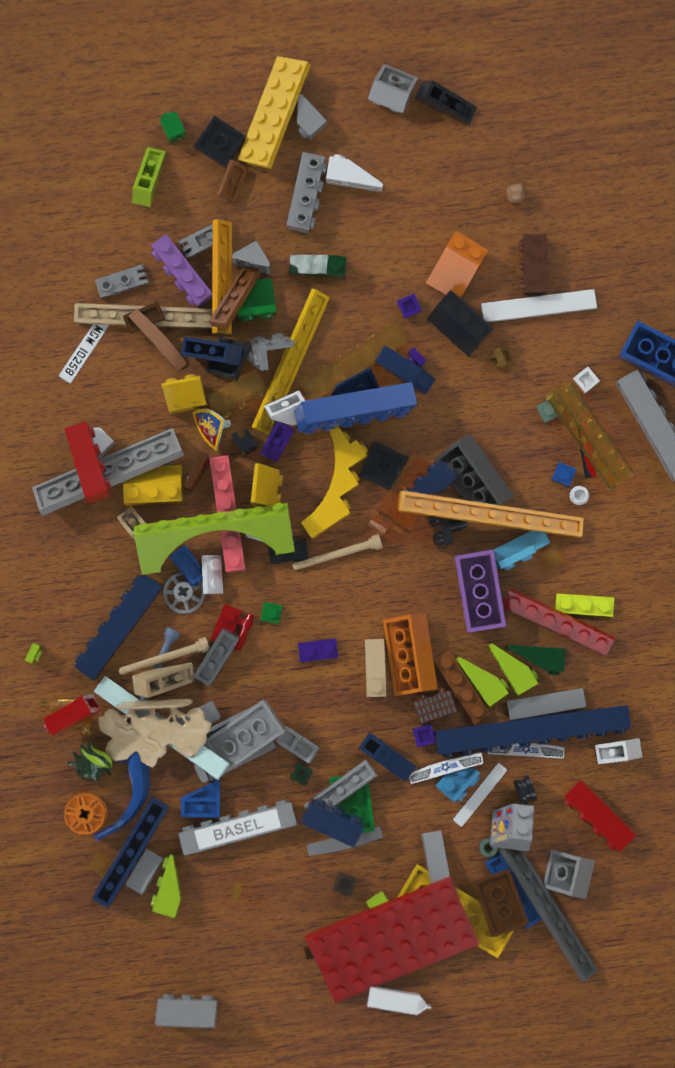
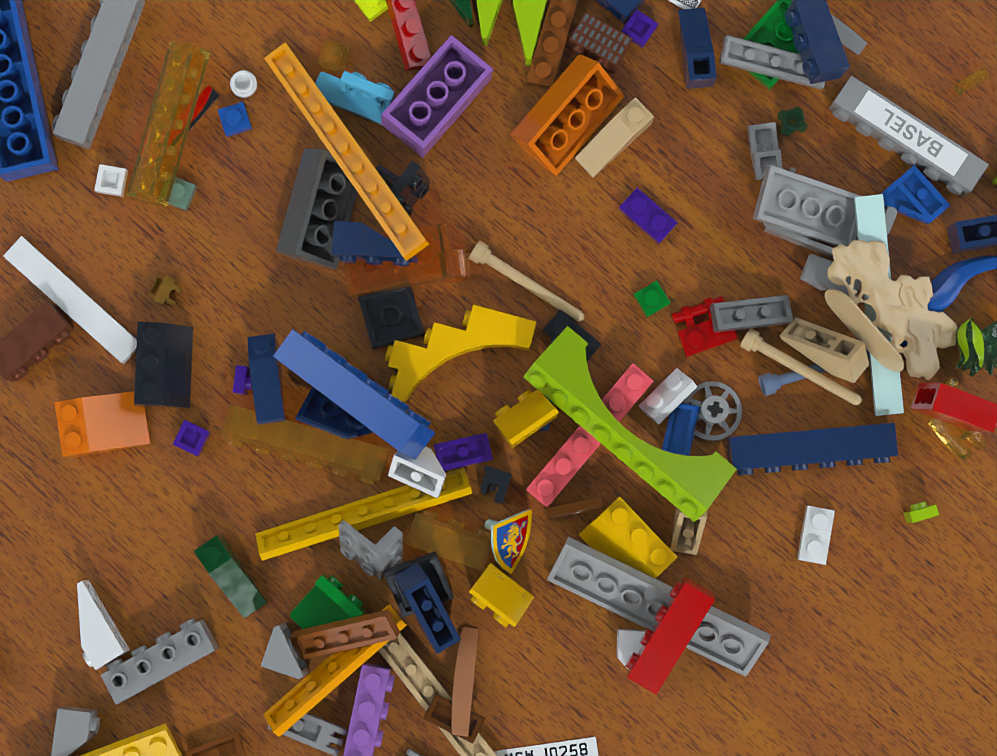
camera: 130 degrees left, 0 degrees up
(71, 589) = (815, 535): none -> white plate

